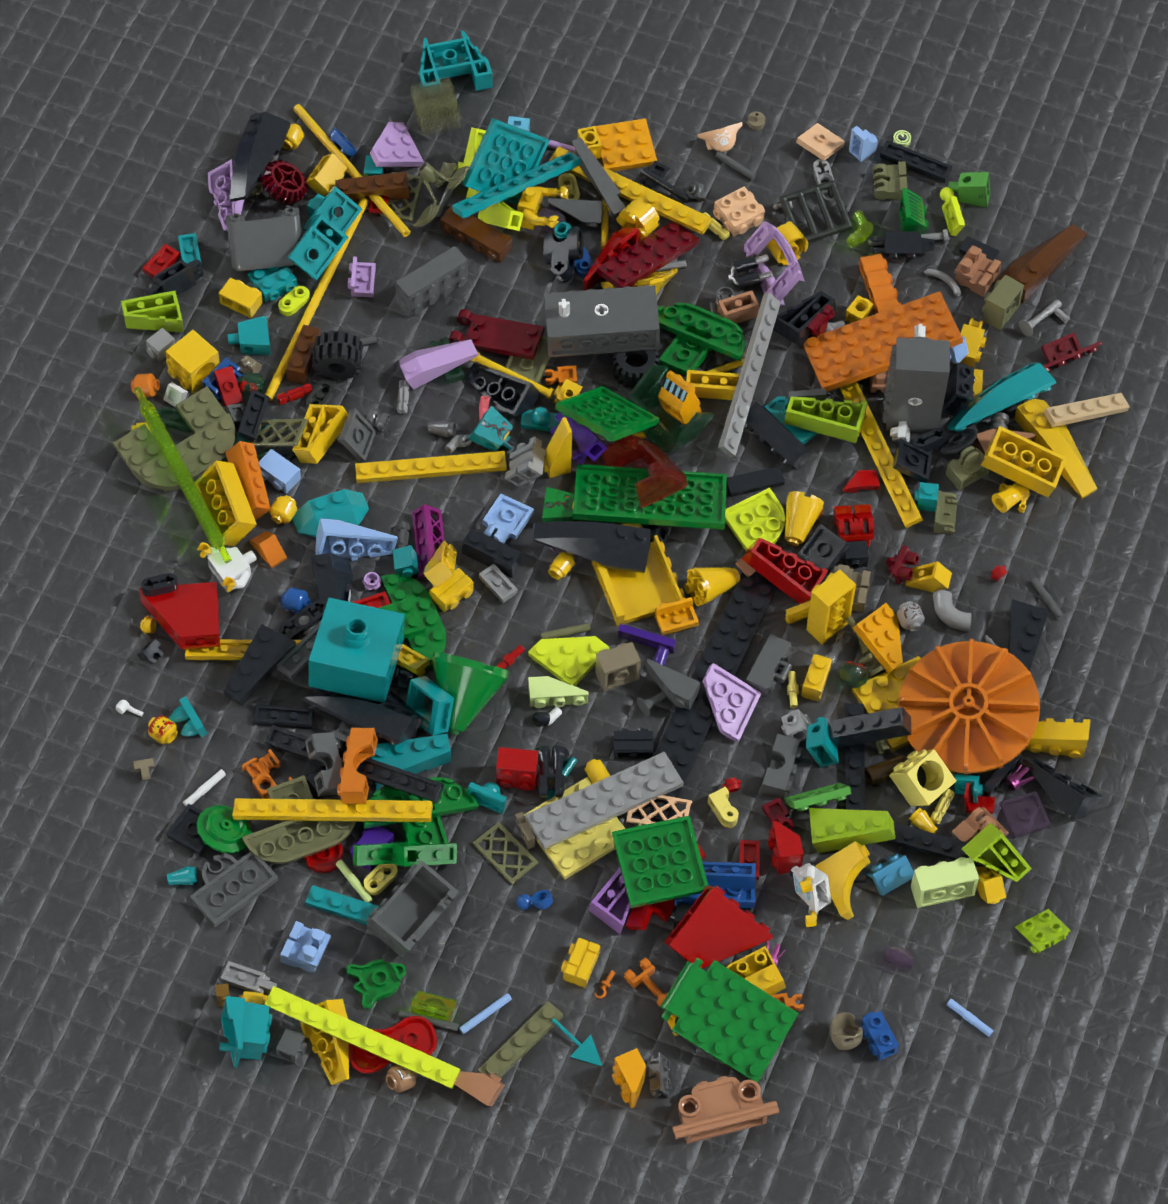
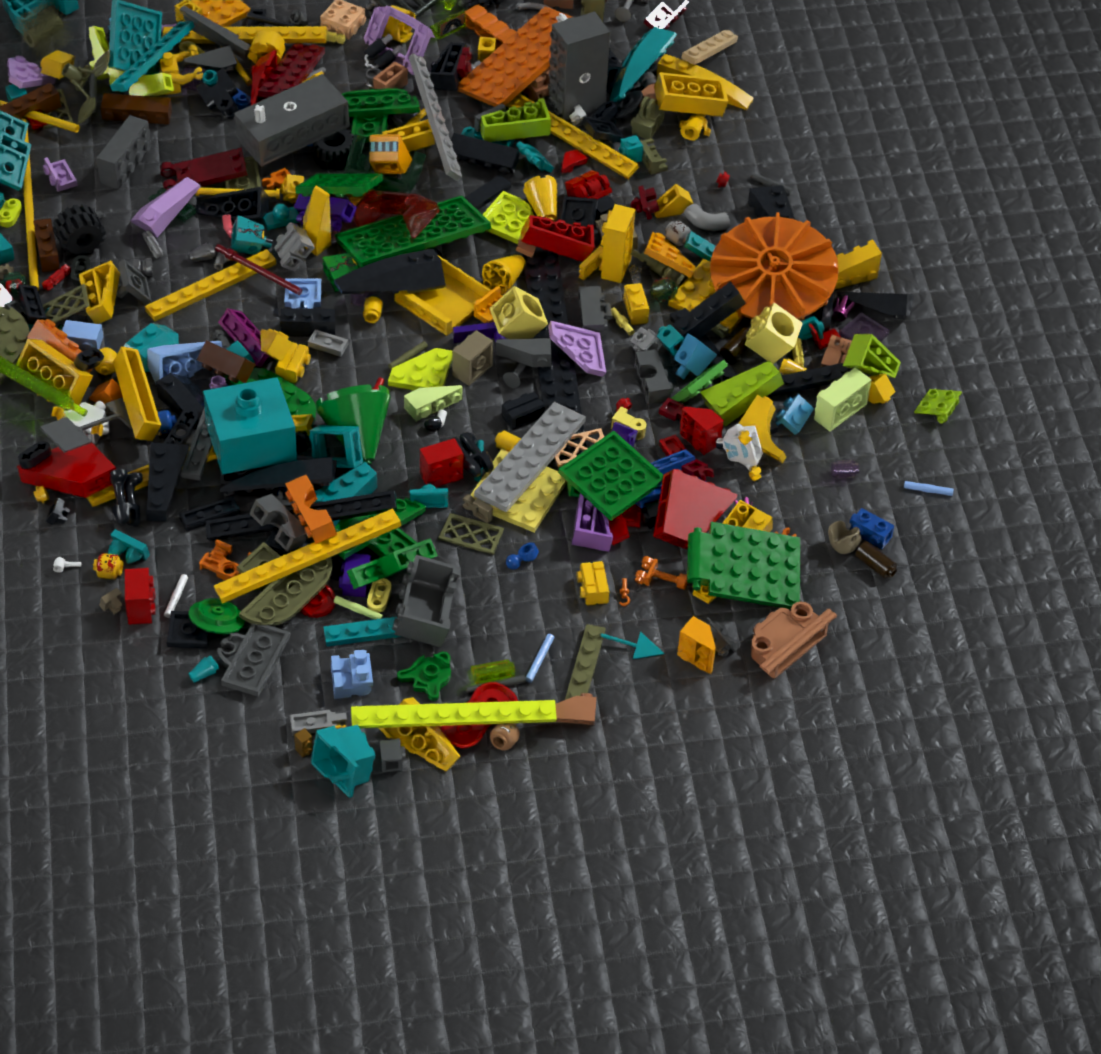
camera: 30 degrees left, 10 degrees down
(166, 776) = (139, 596): none -> red brick
(191, 584) = (69, 436): none -> dark grey hinge
(214, 682) = (122, 483): none -> black piece
(260, 502) = (88, 359): none -> black beam
(284, 561) = (136, 394): none -> yellow brick
(385, 564) = (225, 362): none -> reddish brown brick
(430, 149) = (54, 63): none -> yellow brick
(465, 445) = (233, 256): none -> dark red bar
(687, 642) = (518, 315): none -> light yellow brick
(711, 818) = (627, 433): none -> dark purple bracket
(749, 892) = (698, 469): none -> dark red plate
(825, 462) = (535, 157): none -> teal plate
(830, 765) = (693, 357): none -> dark azure torso
(840, 264) = (449, 25): none -> panel
(863, 1070) = (876, 560): none -> dark brown brick
(920, 640) = (699, 246): none -> teal plate

